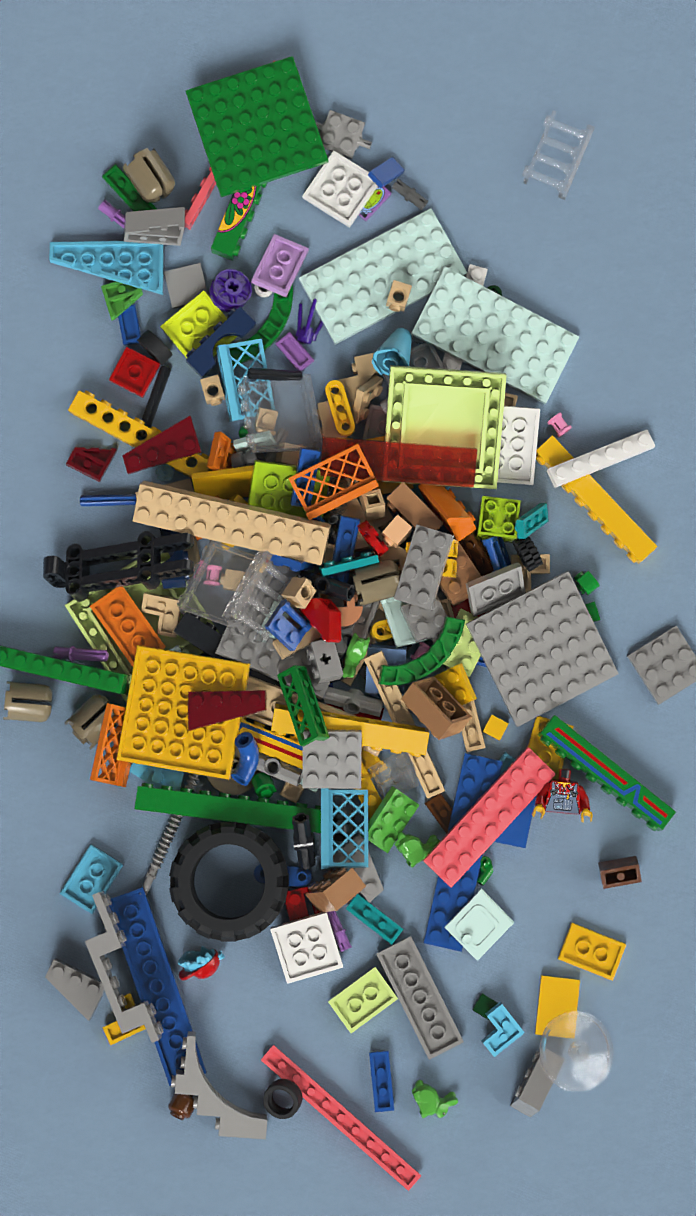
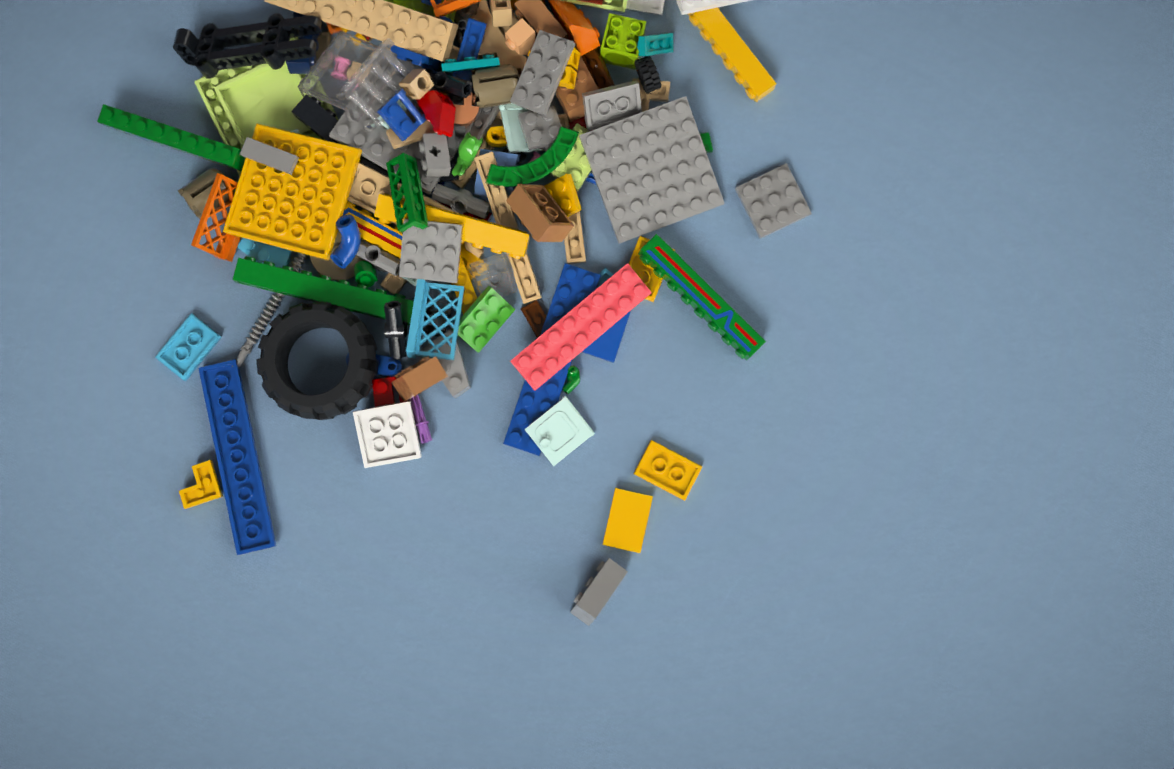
camera: 15 degrees right, 0 degrees up
(25, 711) = (145, 169): dark tan cylinder -> none
(76, 986) = (159, 449): light grey wedge -> none
(80, 654) = (204, 129): medium lavender axle -> none
(107, 942) = (180, 412): light grey bracket -> none
(125, 623) = (248, 101): orange plate -> none
(156, 679) = (269, 156): none -> light grey tile
(167, 610) = (288, 92): tan plate -> none
(181, 1106) = (247, 574): reddish brown head -> none
(200, 964) = (281, 439): hair -> none
(221, 706) = (328, 186): dark red wing -> none
(233, 1119) = (258, 551): light grey arch -> none
(277, 1111) = (336, 588): black tyre -> none
(342, 1118) = (401, 605): coral plate -> none
(363, 1000) = (436, 492): yellowish green plate -> none
(371, 537) = (493, 35): red plate -> none
(374, 919) = (457, 414): teal plate -> none
(381, 1081) = (445, 573): blue plate -> none
(413, 849) = (503, 350): bright green animal -> none
(419, 997) = (493, 496): light grey plate -> none
(429, 1100) = (490, 598): bright green animal -> none
(483, 1005) = (556, 512): dark green tile -> none
(495, 727) = (598, 243): yellow tile -> none
(497, 552) = (617, 68): blue plate -> none
(506, 1030) = (573, 538): medium azure plate -> none
(563, 797) = (656, 315): torso -> none
(576, 1051) = (640, 565): clear dish -> none
(586, 582) = (702, 112): green plate -> none
(619, 872) = (703, 394): reddish brown brick -> none

